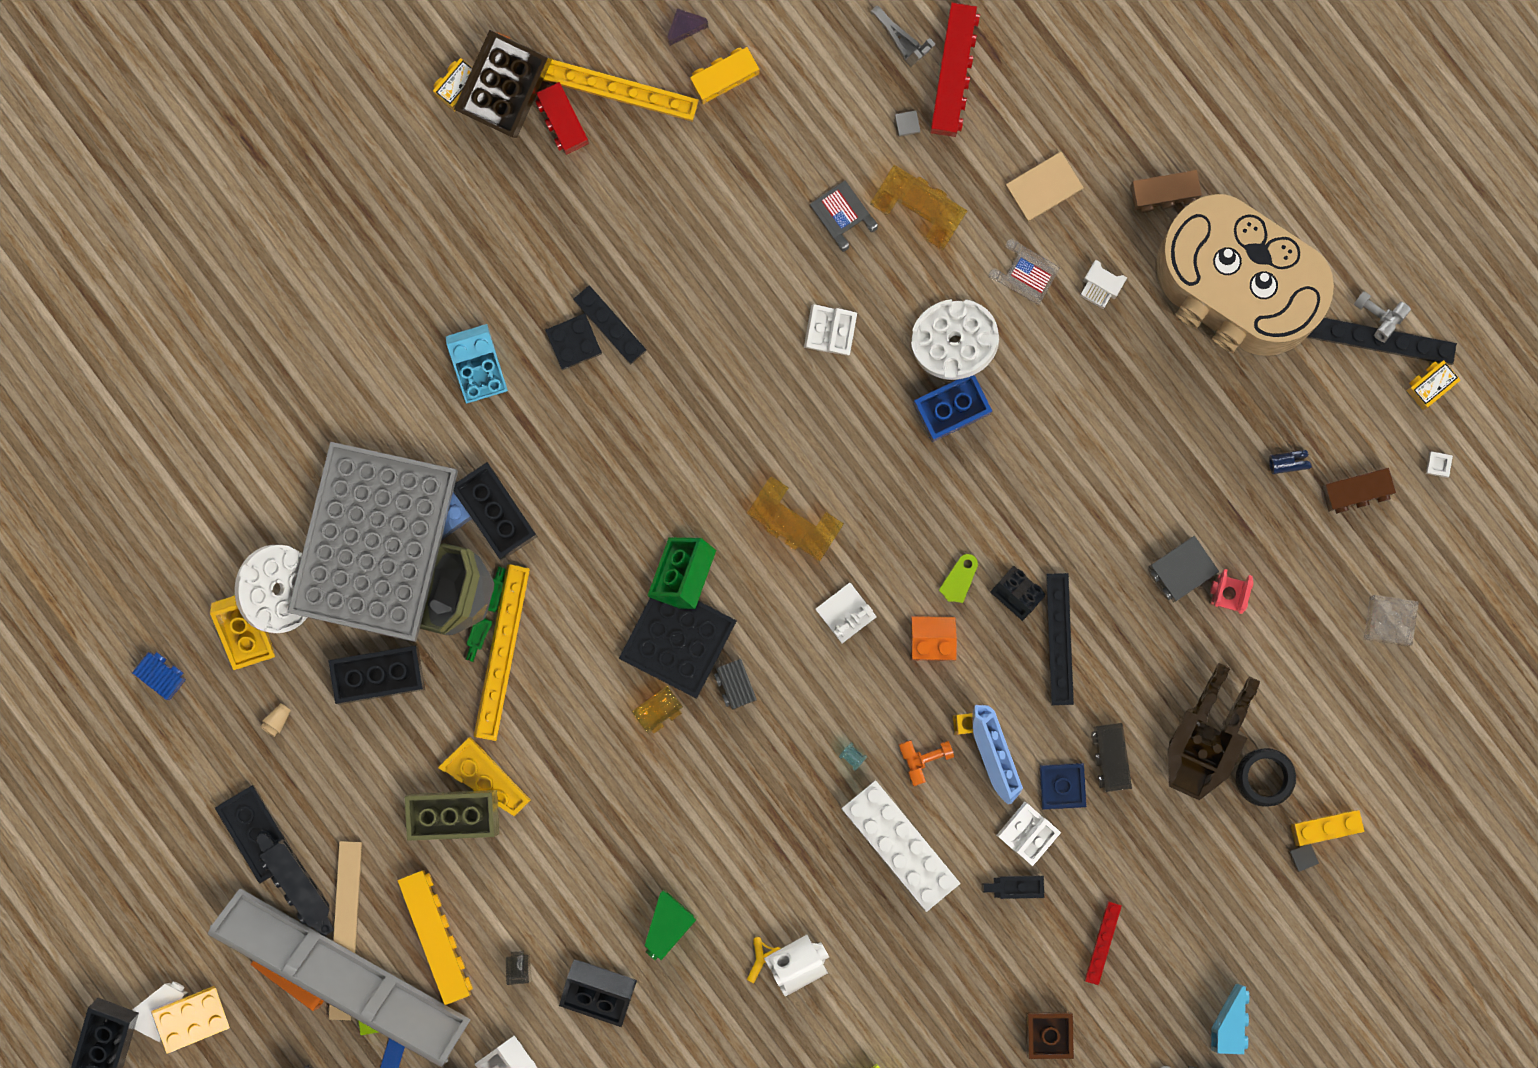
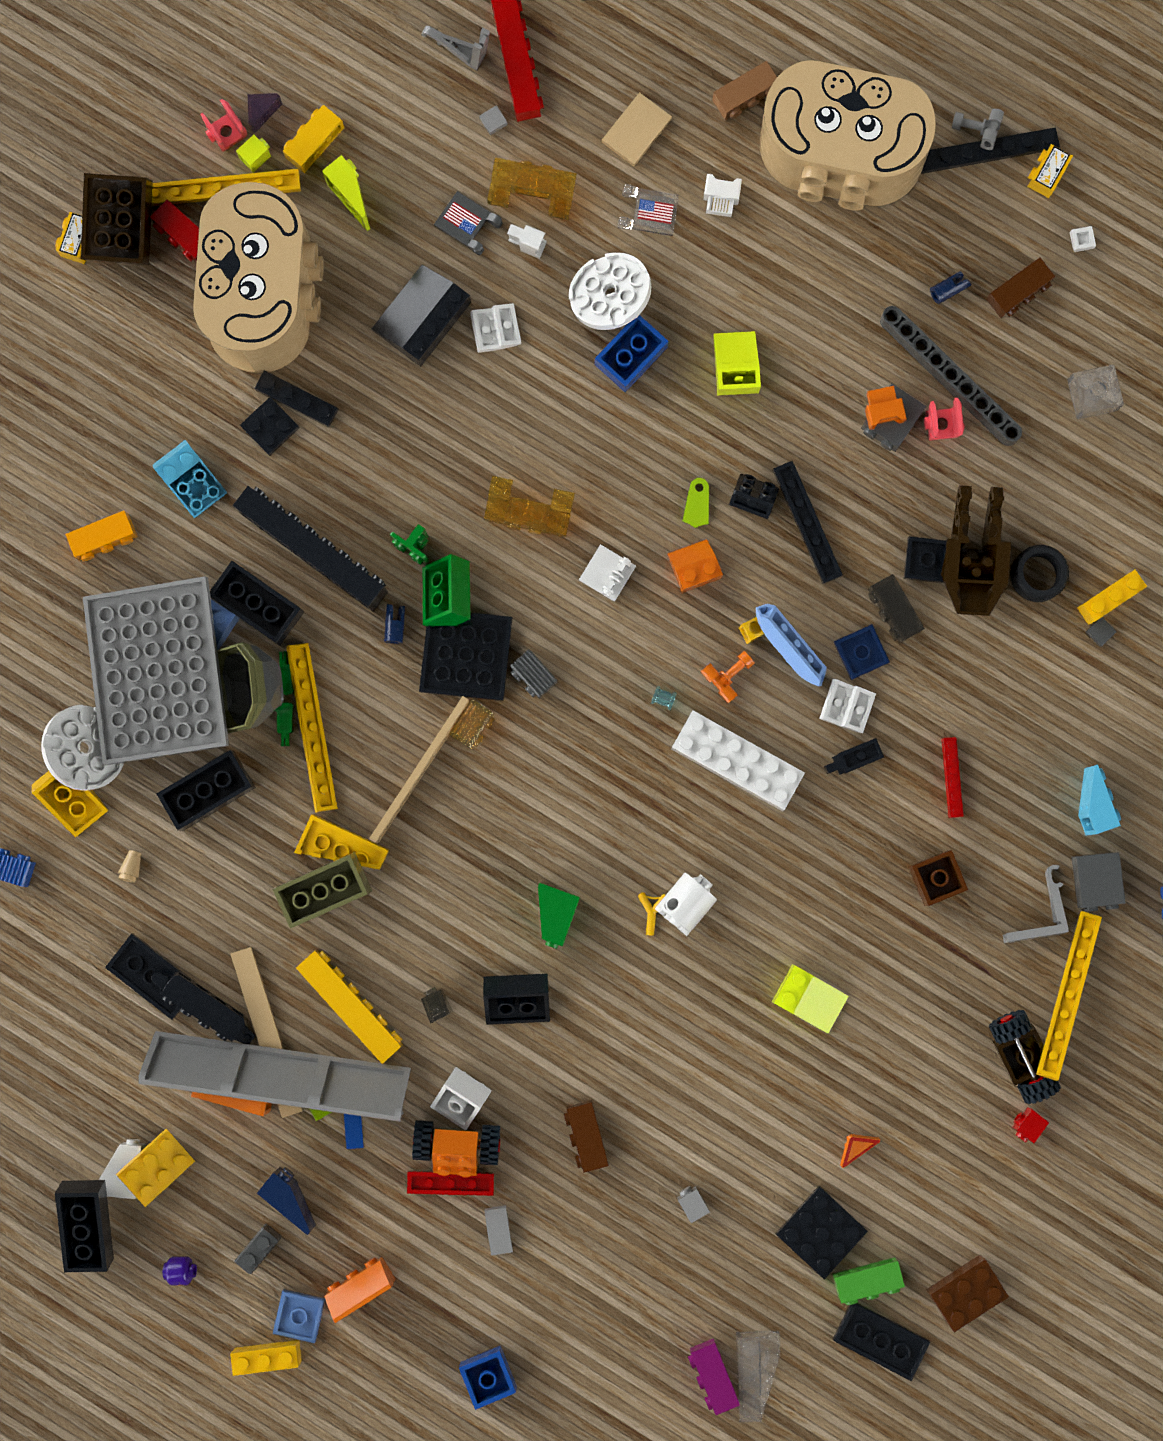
camera: 15 degrees left, 0 degrees up
(370, 387) = (101, 536): none -> light orange brick
(567, 479) = (314, 551): none -> black brick
(590, 735) = (419, 771): none -> tan tile
(616, 197) = (255, 277): none -> tan brick
(618, 588) = (394, 628): none -> dark blue hinge
(650, 24) = (229, 120): none -> coral piece
(661, 67) = (254, 152): none -> neon yellow brick
(672, 511) = (416, 541): none -> green bracket
(738, 133) = (344, 183): none -> neon yellow slope
(763, 289) = (422, 314): none -> black slope
(895, 257) = (528, 239): none -> white piece
(1051, 456) = (736, 363): none -> neon yellow slope
(1159, 719) = (924, 559): none -> black plate
(1176, 557) = (884, 407): none -> orange piece
(1254, 560) = (953, 386): none -> dark grey beam

